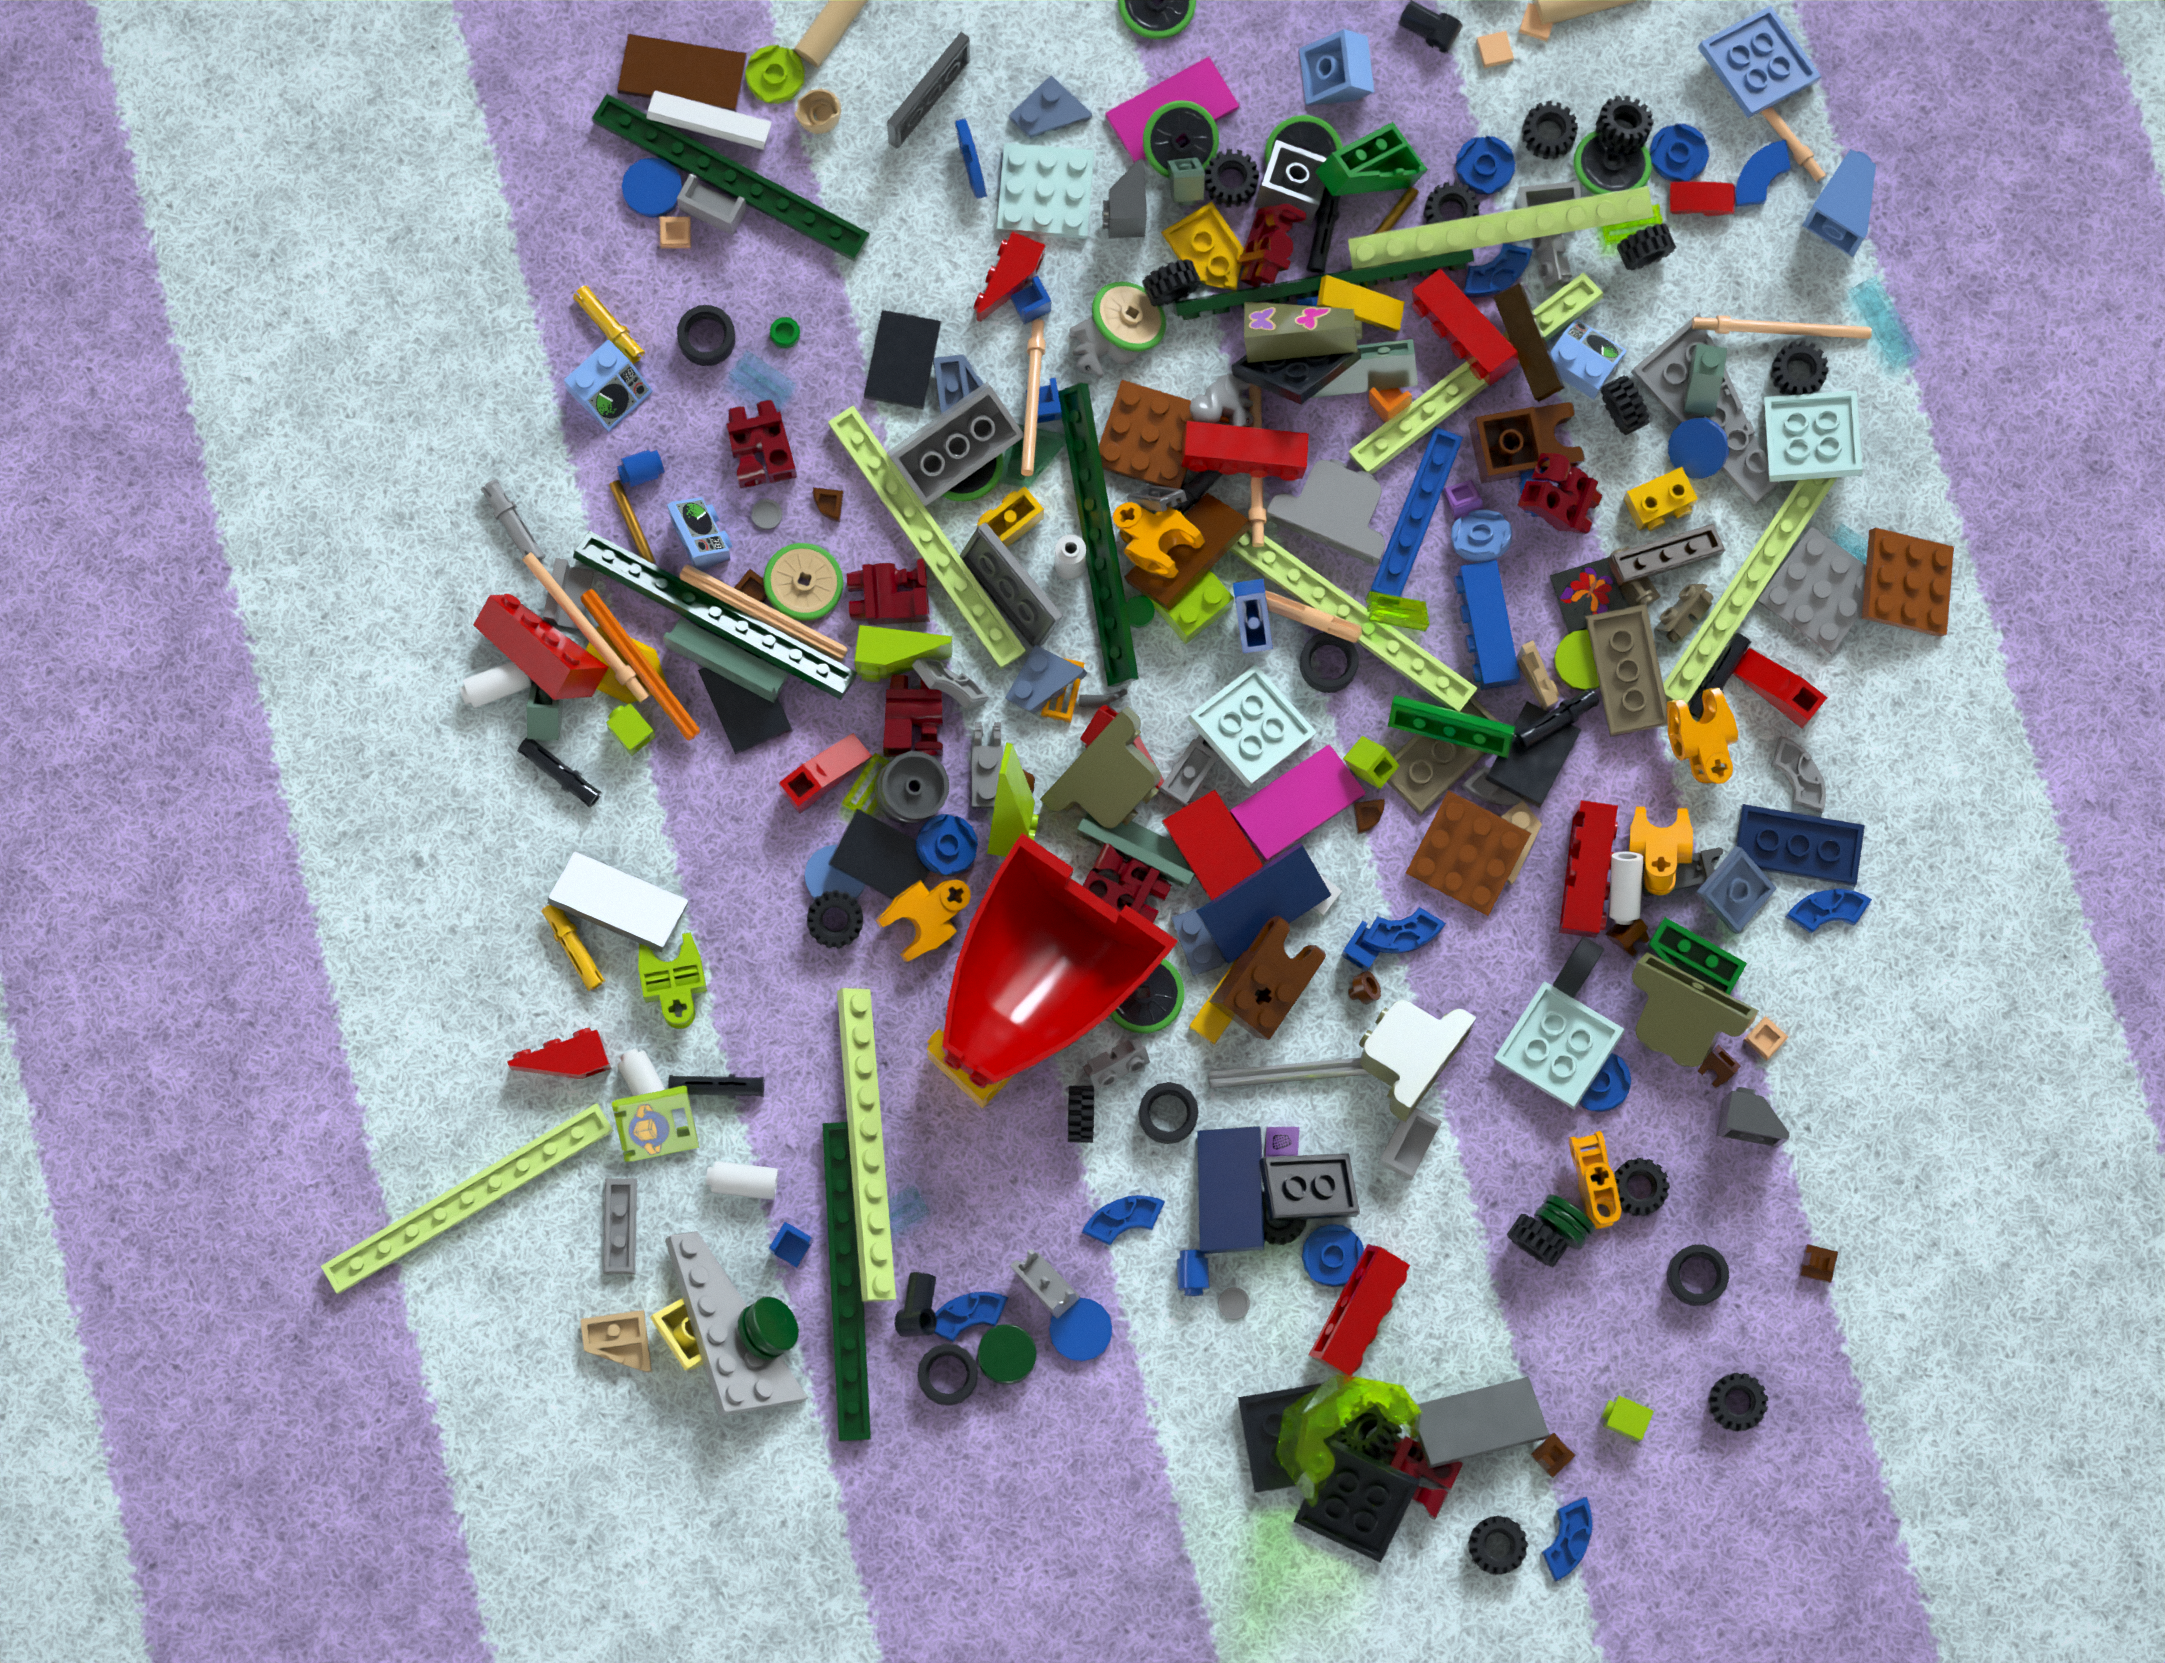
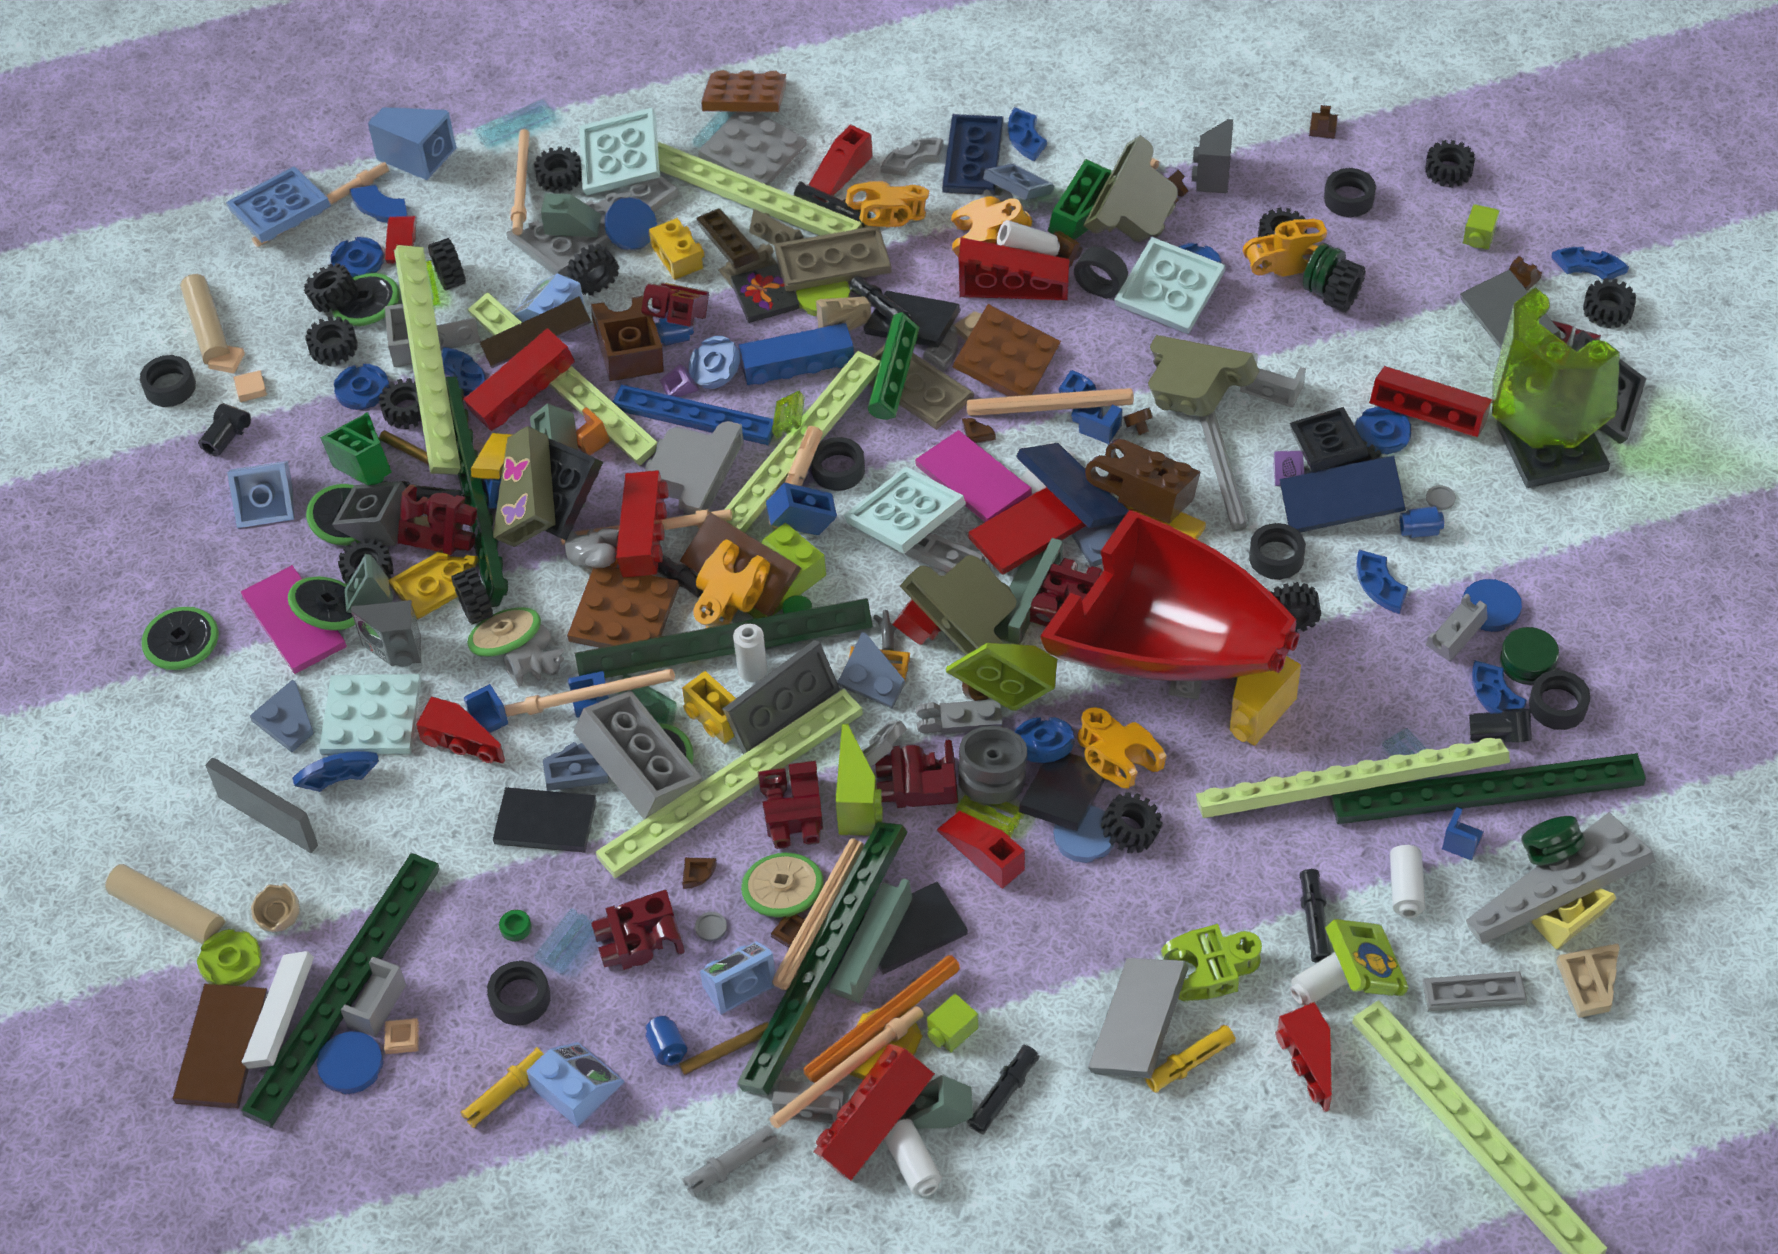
camera: 85 degrees left, 25 degrees down
(1158, 497) = (689, 589): flat silver tile -> none
(1371, 762) = (930, 423): lime brick -> none
(1392, 893) = (1050, 402): none -> light nougat axle

